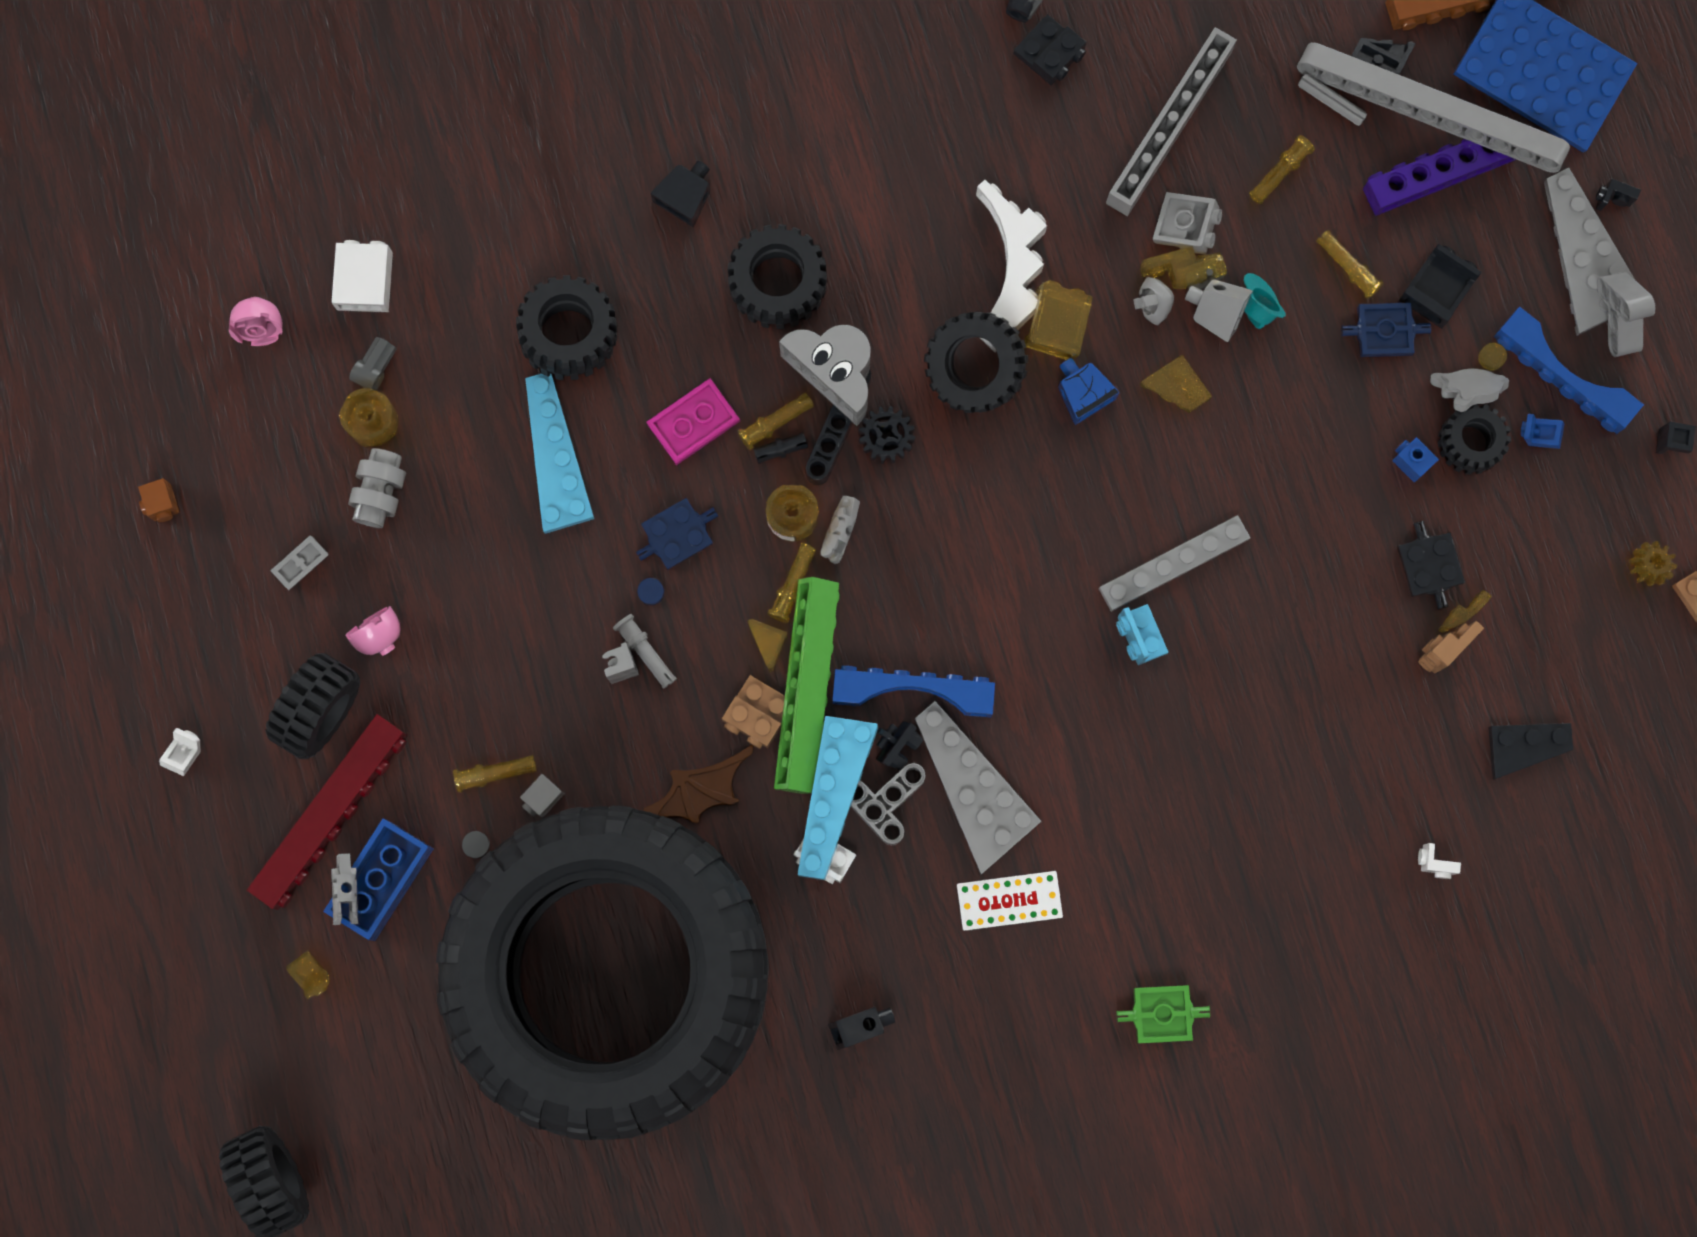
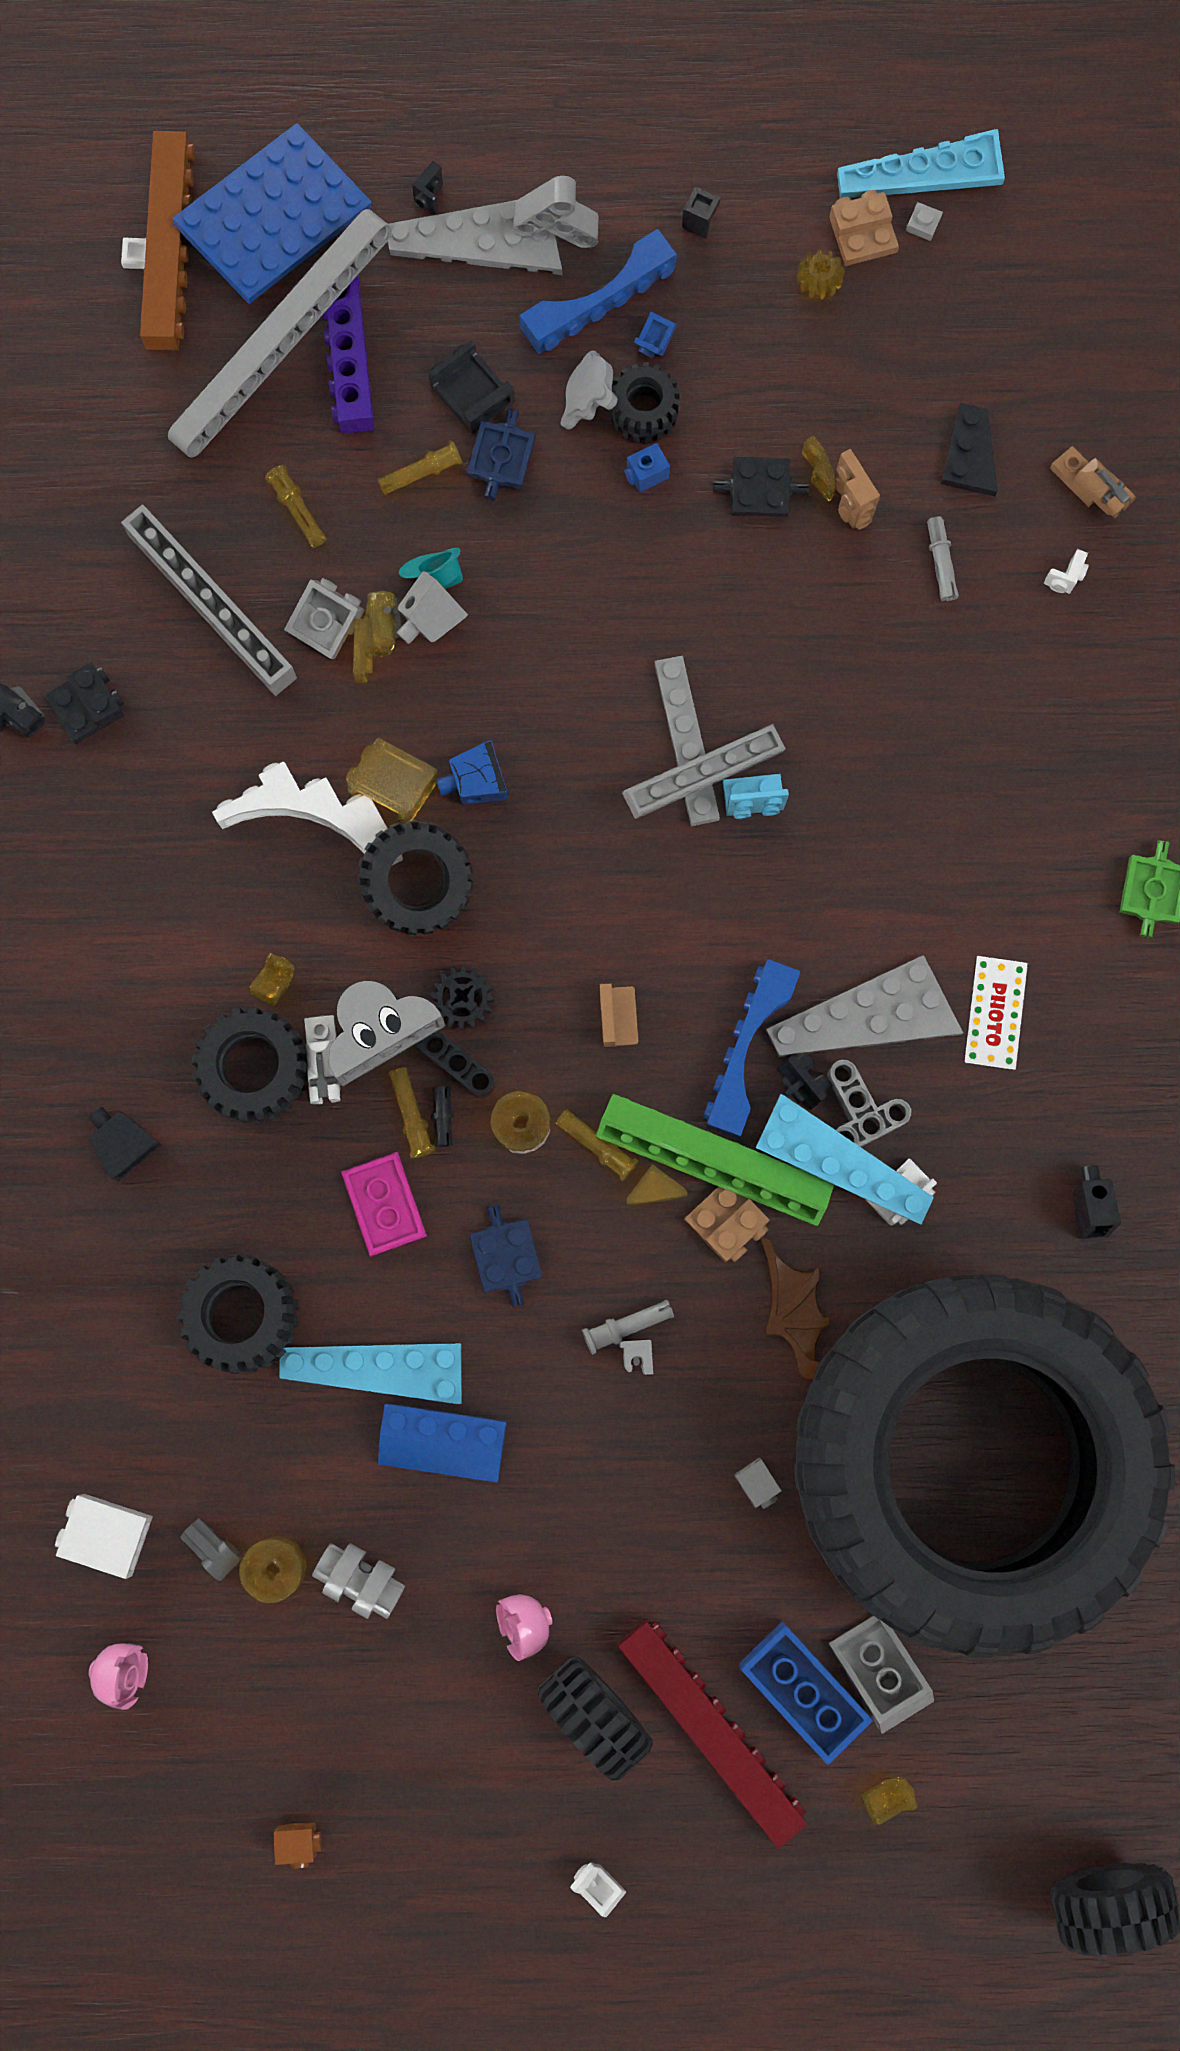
camera: 75 degrees left, 0 degrees up
(299, 562) = (418, 1693): light grey hinge -> none
(344, 876) = (796, 1733): light grey hinge -> none
(408, 943) = (882, 1673): none -> light grey slope
(476, 844) = (790, 1571): dark grey tile -> none
(481, 775) = (716, 1544): clear yellow pin -> none
(508, 524) = (441, 1442): none -> blue slope
(650, 591) = (561, 1302): dark blue tile -> none
(817, 324) = (319, 1038): none -> white plate
(840, 529) = (551, 1076): light grey hinge -> none
(856, 273) = (273, 979): none -> clear yellow bracket
(910, 570) = (618, 1015): none -> medium nougat panel
(1148, 583) = (703, 771): none -> light grey tile
(1154, 300) = (400, 675): light grey piece -> none
(1178, 384) = (497, 679): clear yellow wing -> none
(1332, 99) = (235, 432): light grey axle -> none
(1383, 53) = (203, 366): black wing -> none
(1416, 744) = (942, 559): none -> light grey axle
(1492, 356) = (560, 360): clear yellow tile -> none
(1532, 863) = (1092, 482): none -> medium nougat plate

